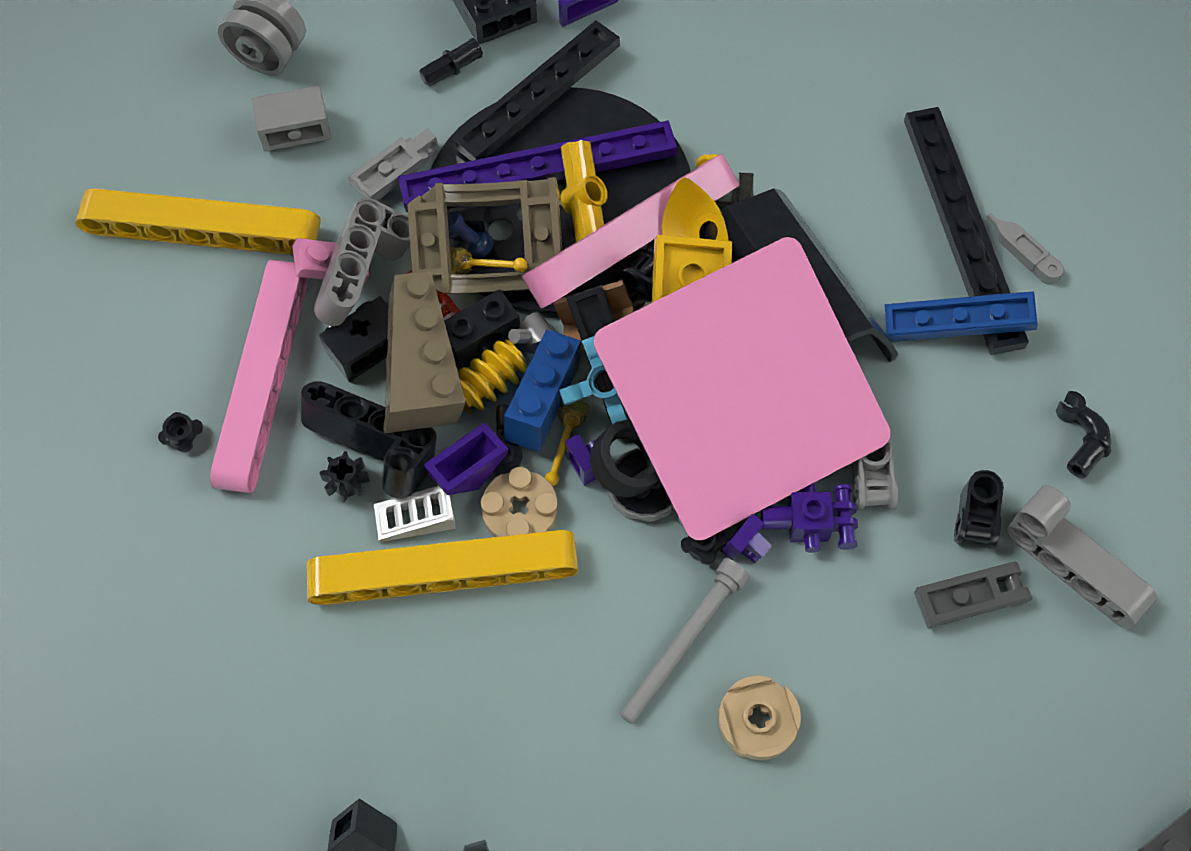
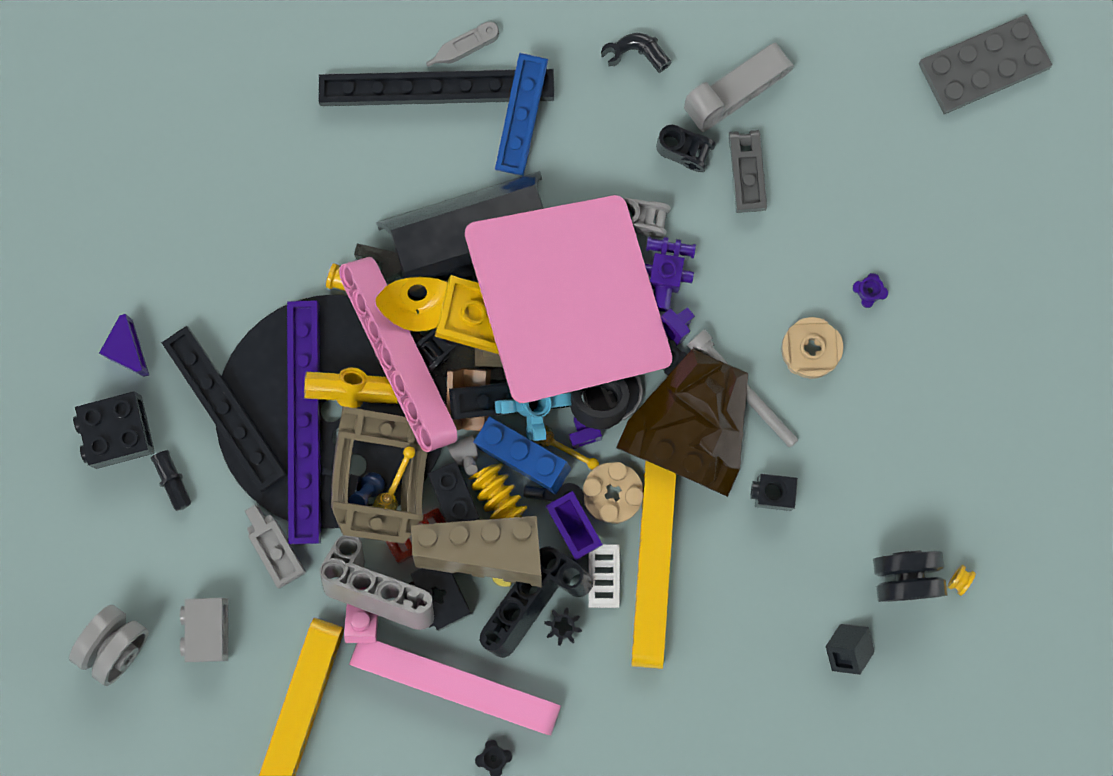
camera: 75 degrees left, 15 degrees up
(558, 717) = (787, 487): none -> black brick
(623, 584) = (693, 423): none -> dark brown wedge
(858, 772) = (872, 281): none -> dark purple plate

